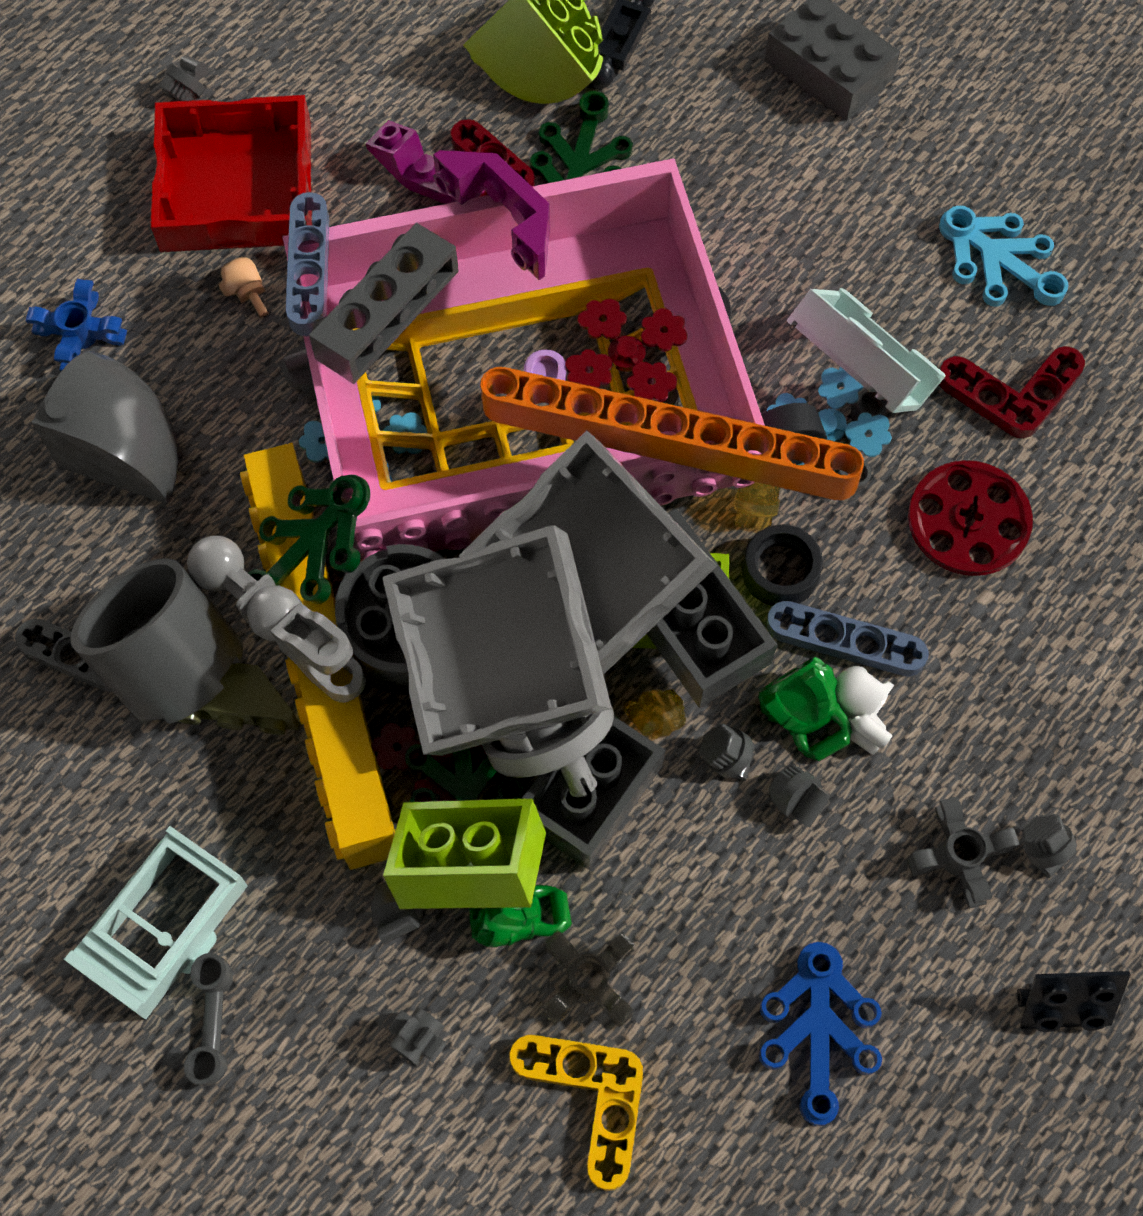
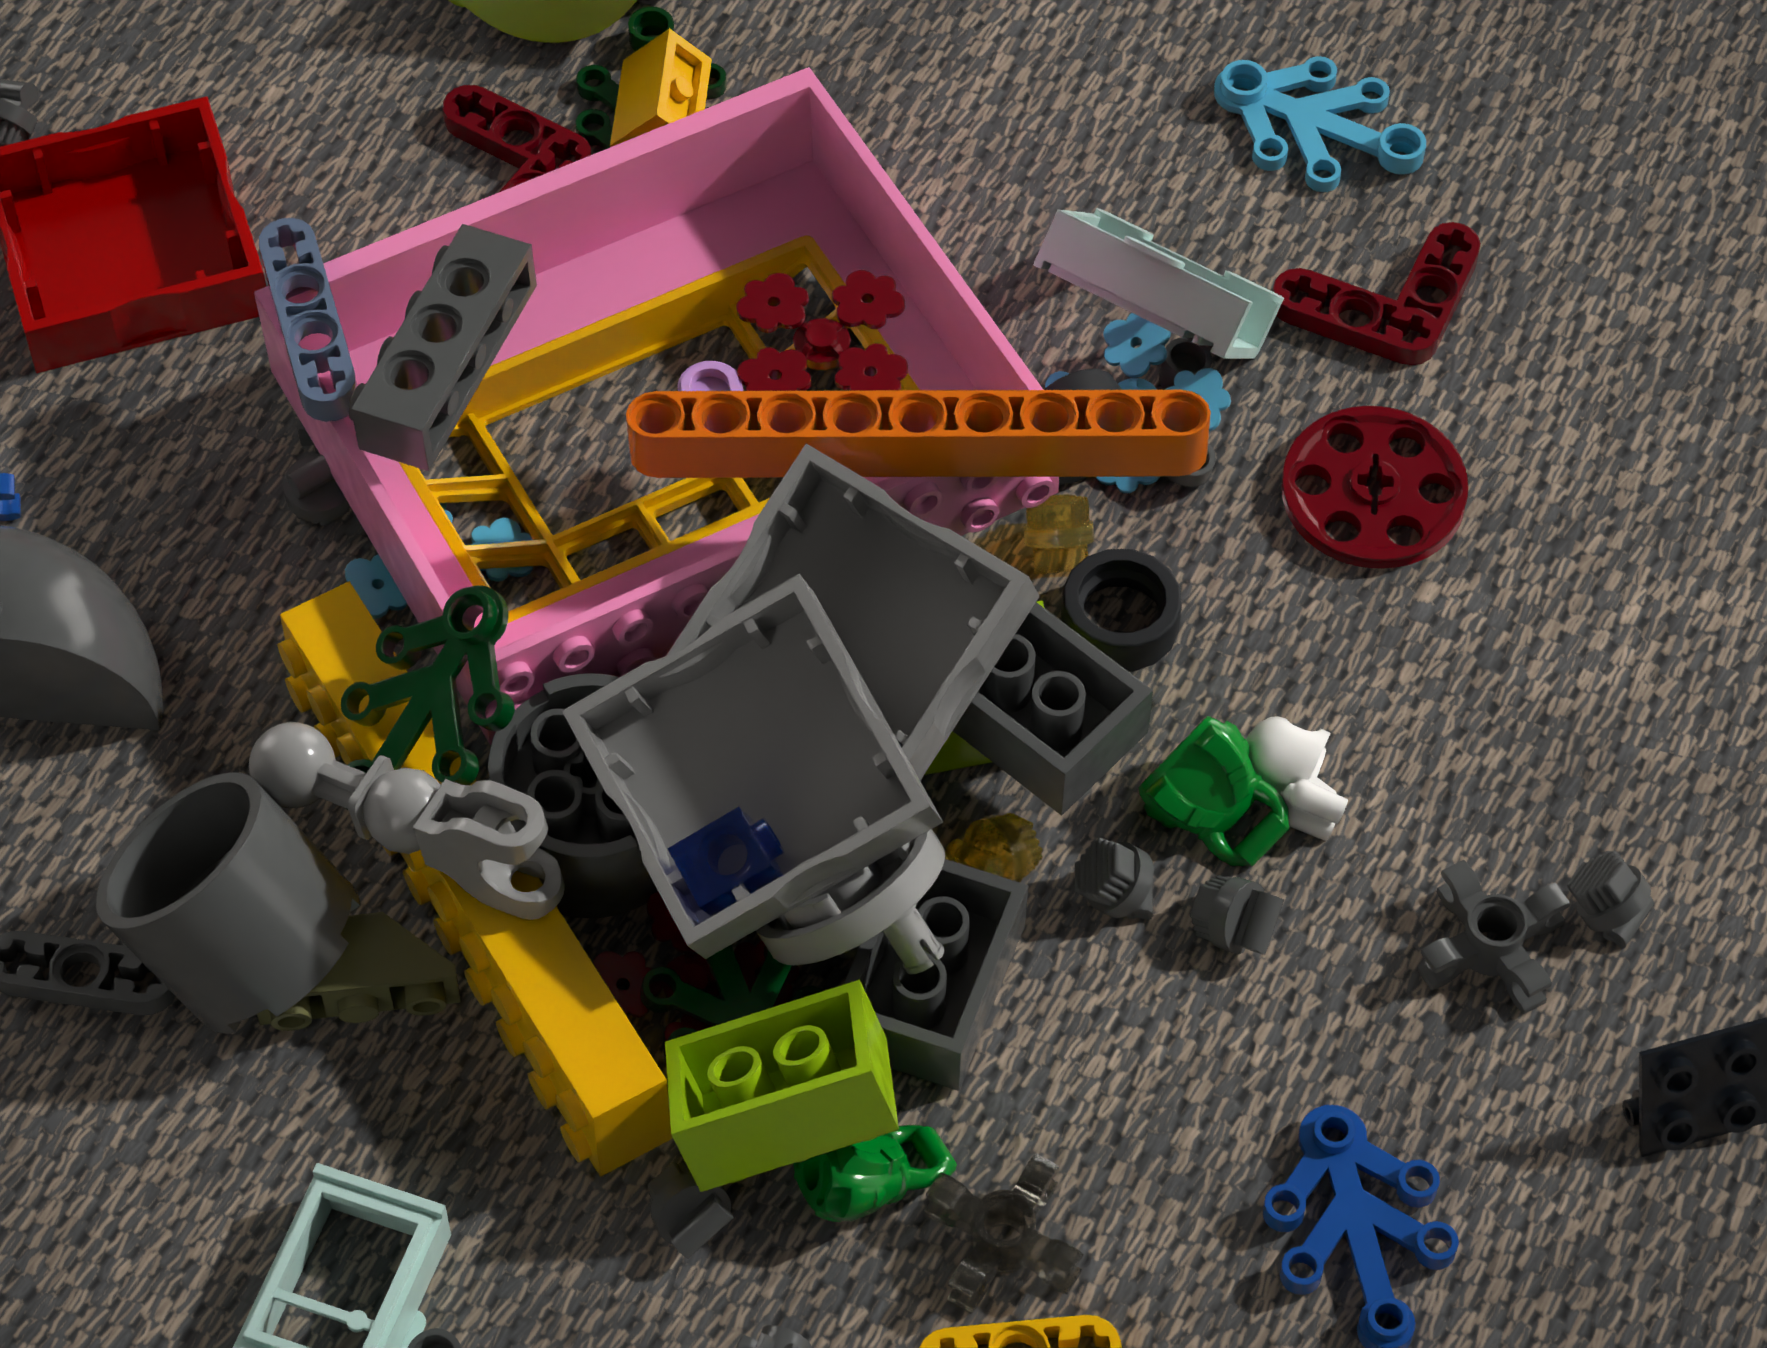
camera: 15 degrees left, 10 degrees down
(242, 279) = (184, 385): light nougat piece -> none
(403, 156) = (377, 154): magenta slope -> none
(447, 696) = (699, 857): none -> clear blue brick
(470, 173) = (514, 144): magenta slope -> none
(587, 148) = (660, 86): none -> yellow panel
(847, 632) = (1243, 679): sand blue beam -> none

